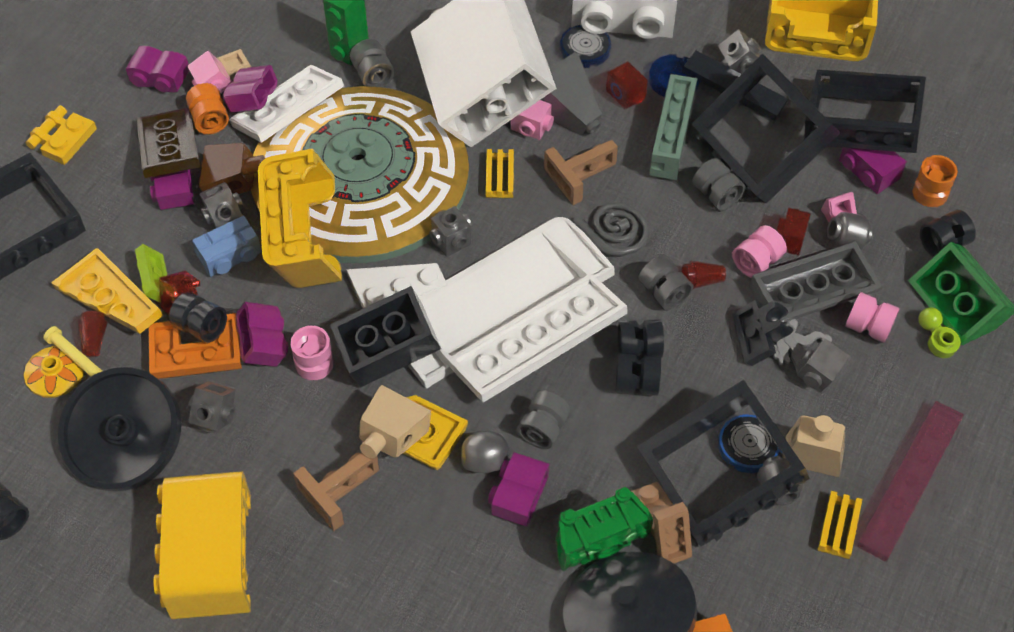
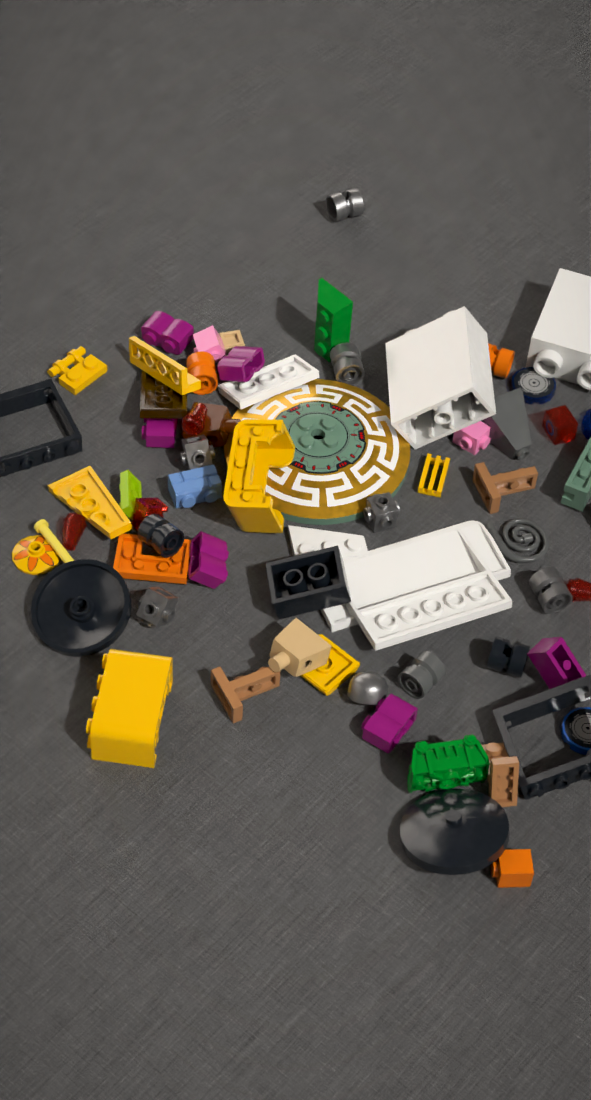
camera: 10 degrees right, 5 degrees down
(159, 112) = (162, 367): none -> yellow fence
(210, 167) = (195, 420): none -> clear red cone
(312, 352) = (246, 583): bright pink wheel -> none
(544, 25) = (500, 360): none -> orange wheel
(650, 334) = (526, 628): black wheel -> none
(697, 372) = (555, 662): none -> magenta brick

